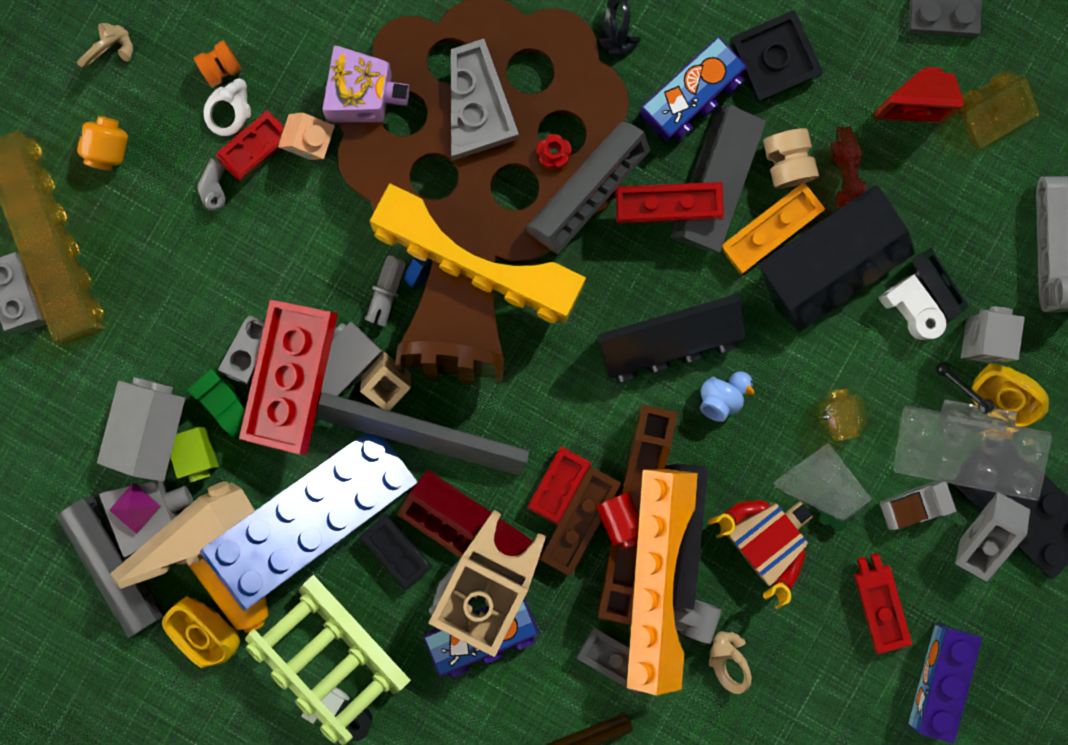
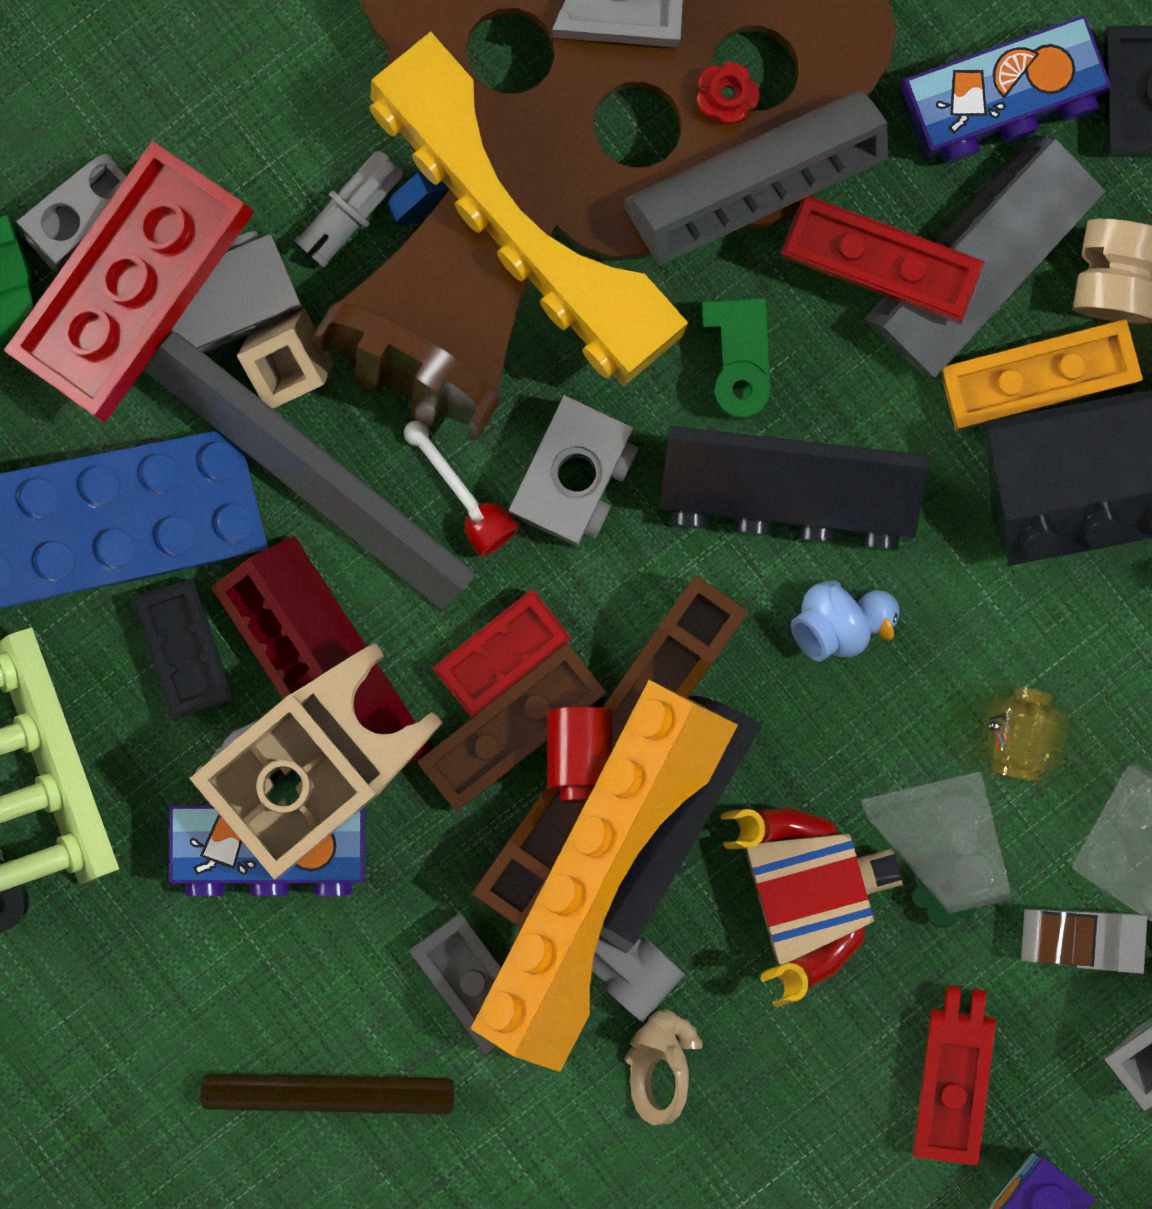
camera: 20 degrees right, 0 degrees up
(523, 422) = (488, 523): none -> hinge
(550, 356) = (574, 433): none -> light grey brick
(618, 282) = (744, 355): none -> green leg

